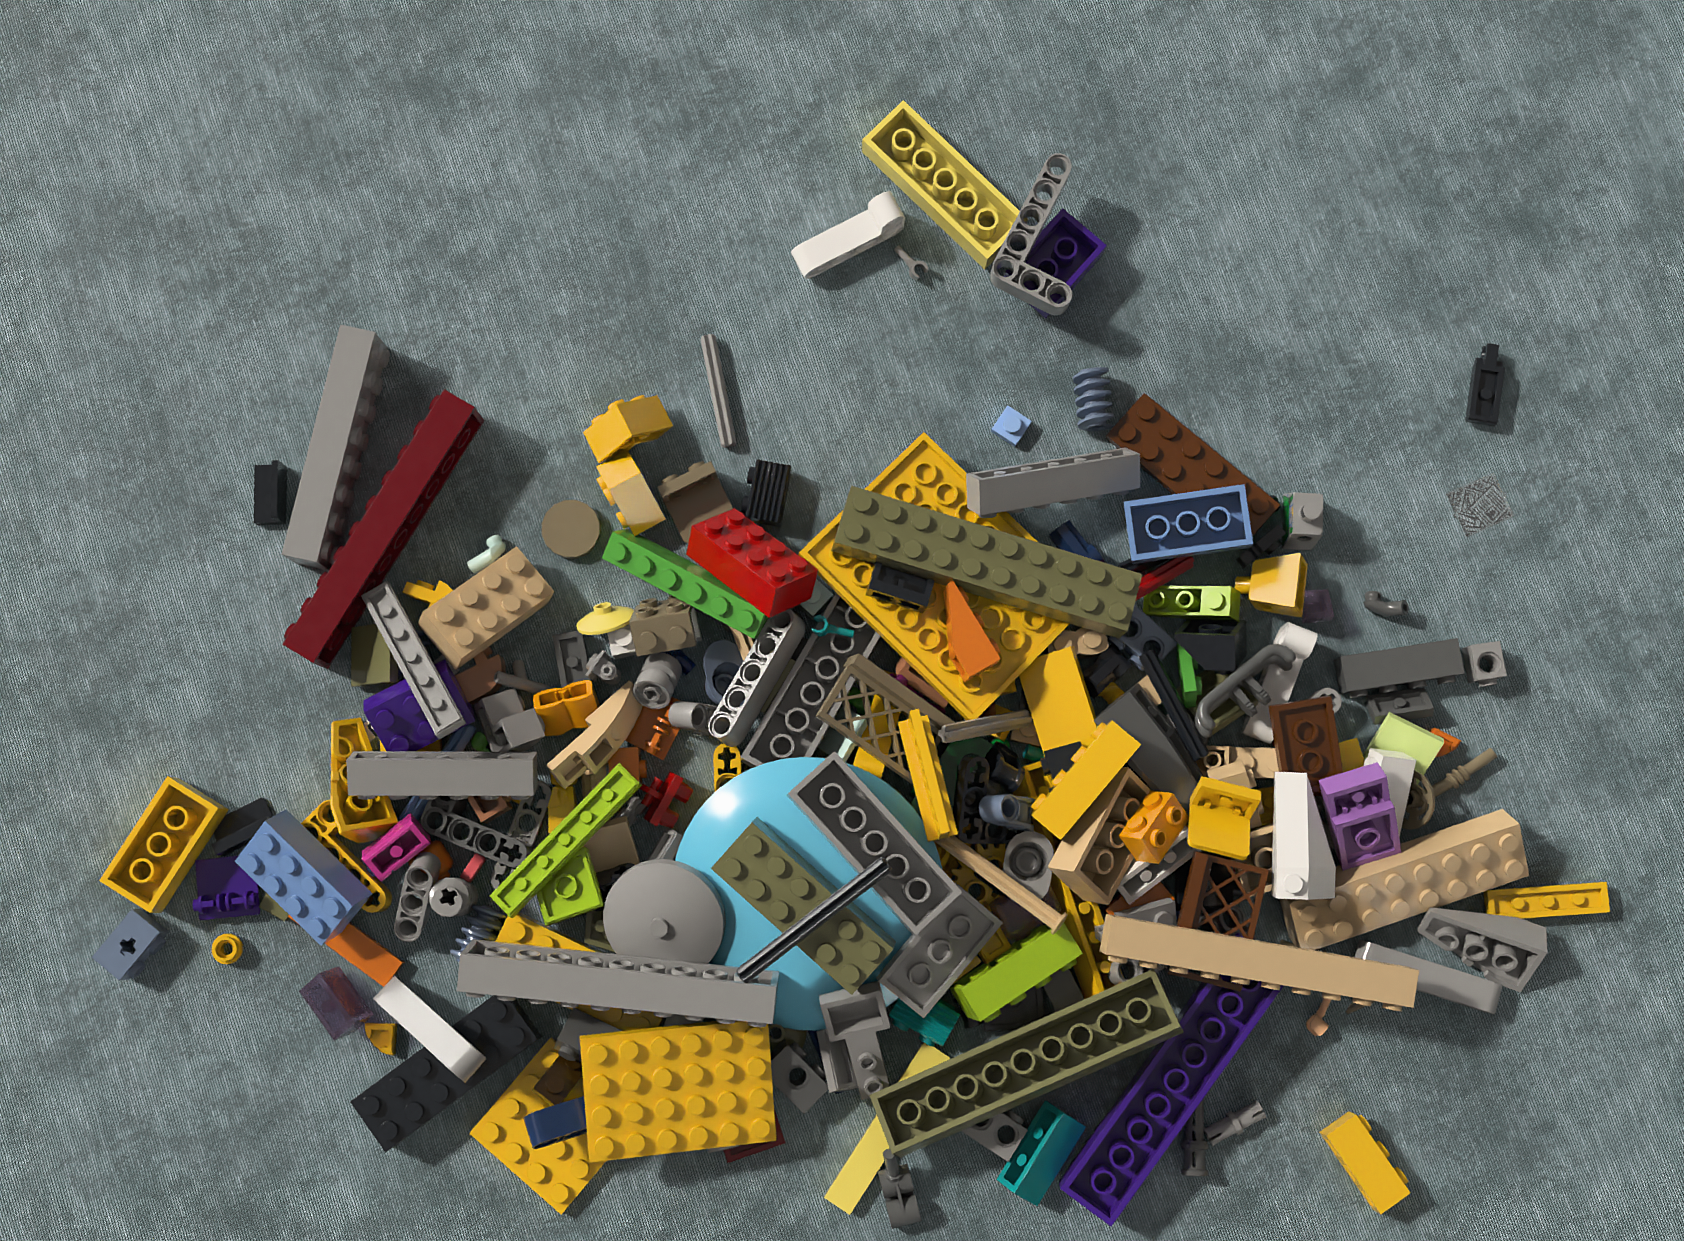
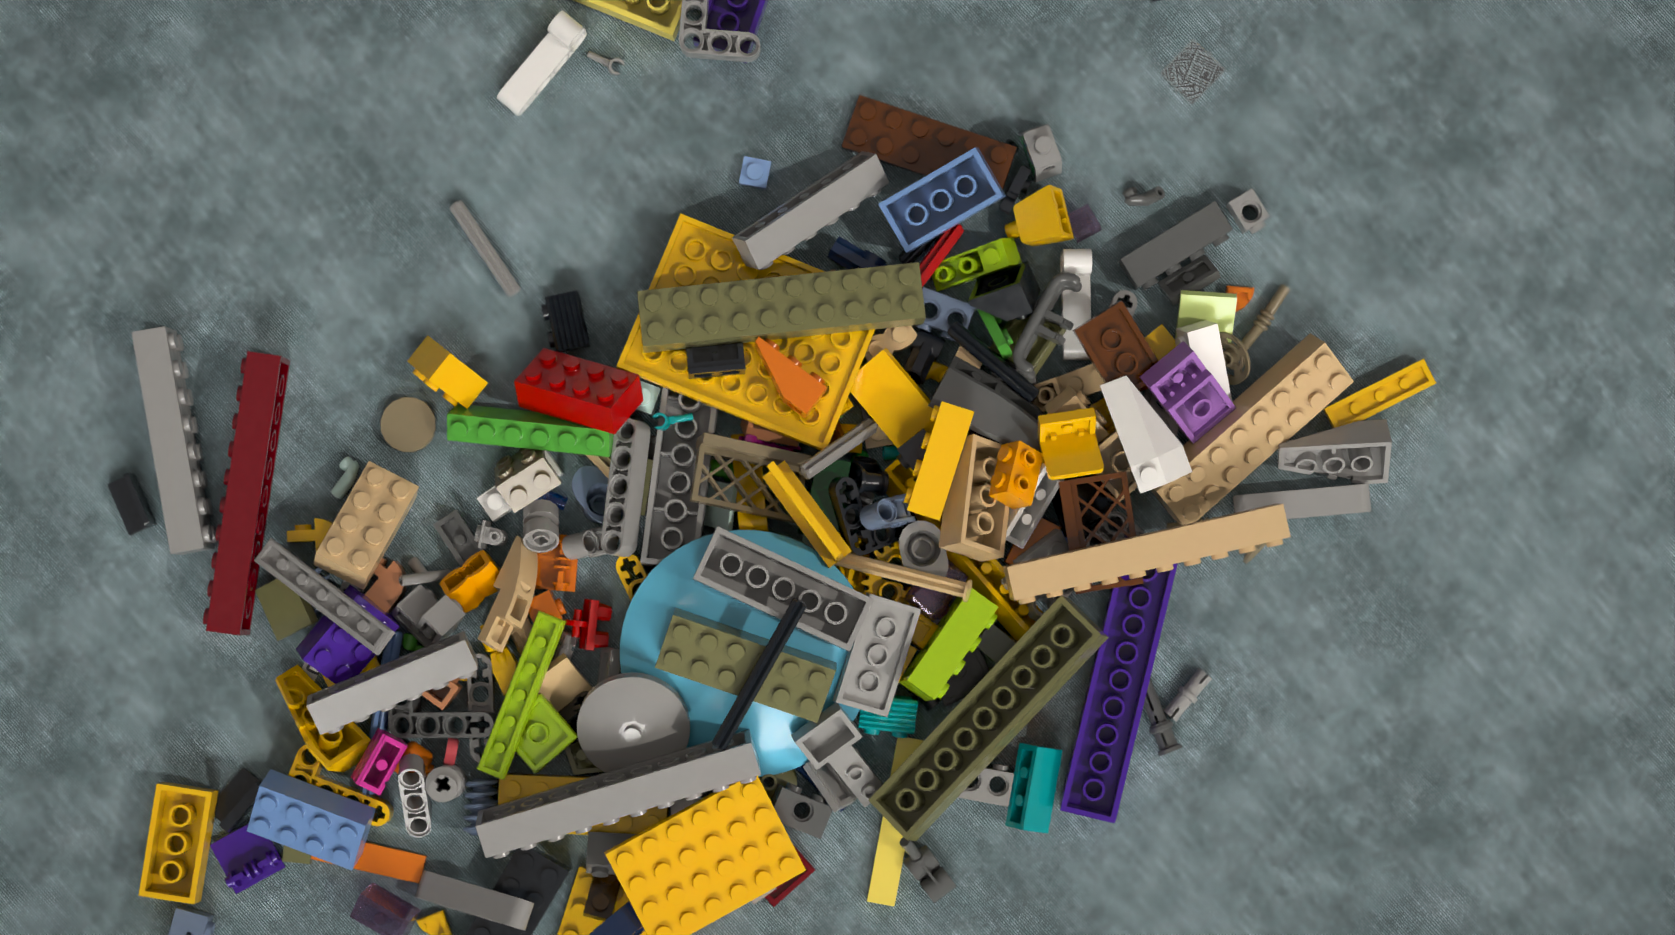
camera: 20 degrees left, 5 degrees up
(218, 948) = (262, 910): yellow plate -> none
(604, 619) = (473, 492): light yellow dish -> none
(626, 426) = (419, 315): yellow brick -> none
(694, 497) = (505, 353): dark tan bracket -> none
(1092, 399) = (816, 120): sand blue piece -> none
(1315, 1023) = (1224, 582): light nougat hand -> none
(1366, 1161) = (1310, 680): yellow brick -> none

